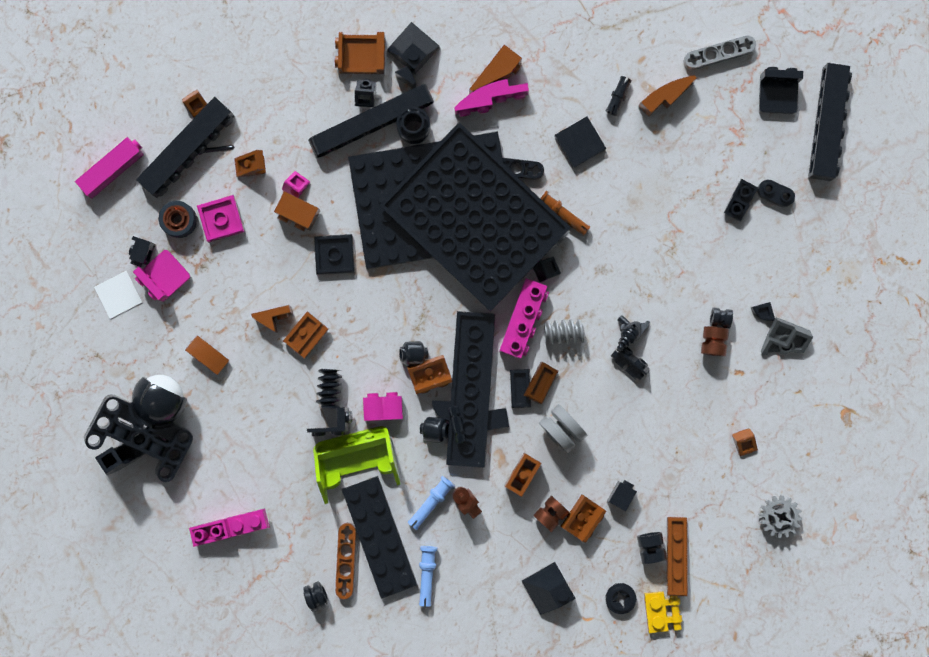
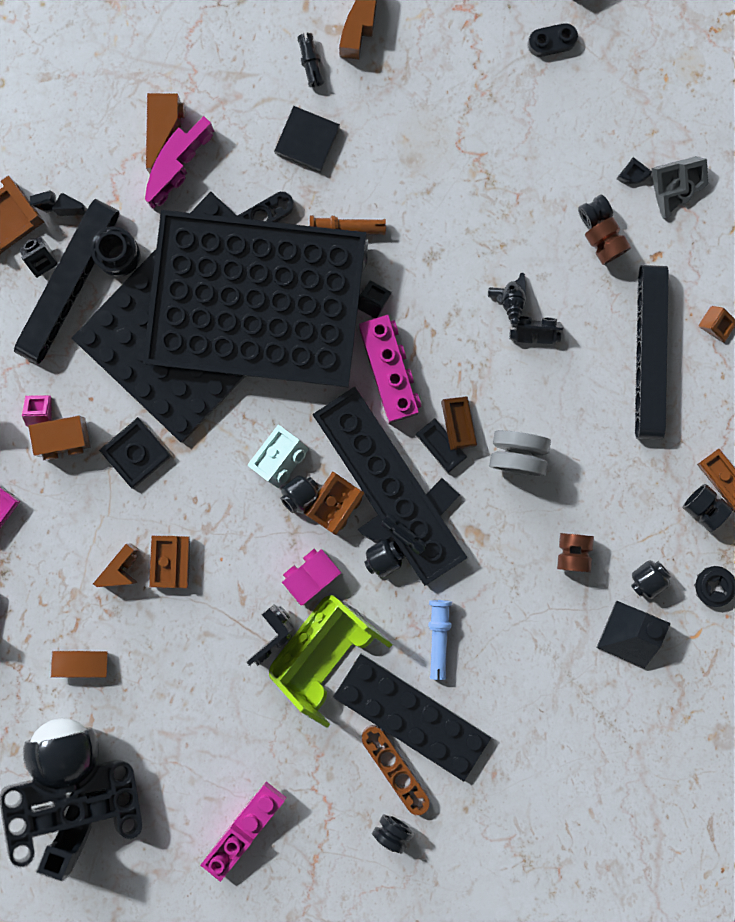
camera: 40 degrees left, 0 degrees up
(328, 388) = (237, 600): black piece -> none
(393, 63) = (43, 201): none -> black tile
(413, 48) = (54, 170): black slope -> none
(417, 321) = (278, 456): none -> light aqua bracket
(427, 565) = (487, 709): light blue pin -> none
(466, 501) = (477, 609): copper hips -> none
(522, 474) = (514, 534): dark orange brick -> none
(564, 331) = (441, 349): light grey piece -> none
(583, 518) = (613, 532): dark orange bracket -> none
(584, 564) = (650, 579): none -> black head
(622, 495) = (634, 476): black brick -> none
(690, 428) = (651, 352): none -> black beam
(740, 200) = (521, 74): black slope -> none

